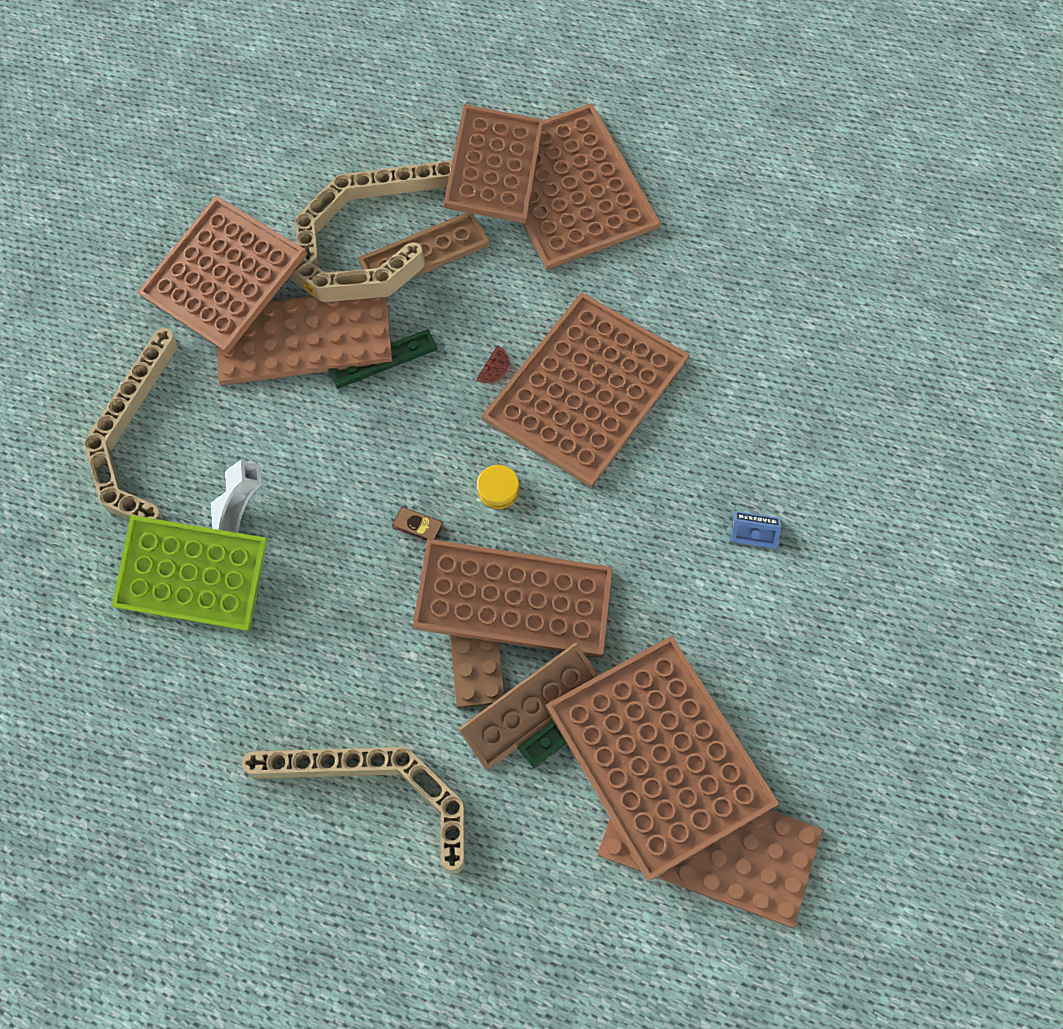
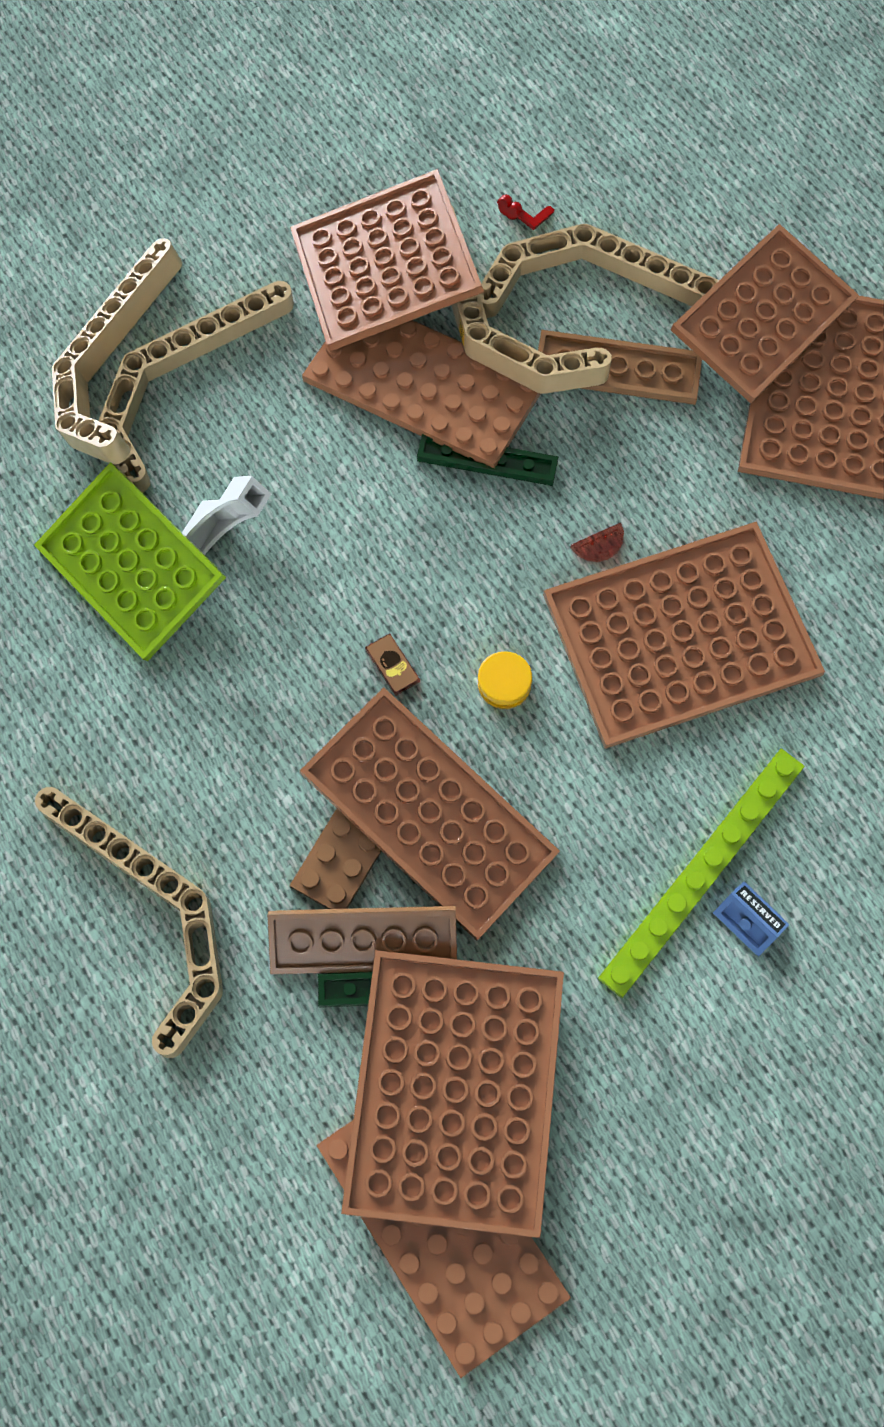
camera: 35 degrees right, 5 degrees up
(56, 448) = (94, 346): none -> tan beam
(283, 194) = (514, 210): none -> red piece
(706, 525) = (700, 873): none -> lime plate

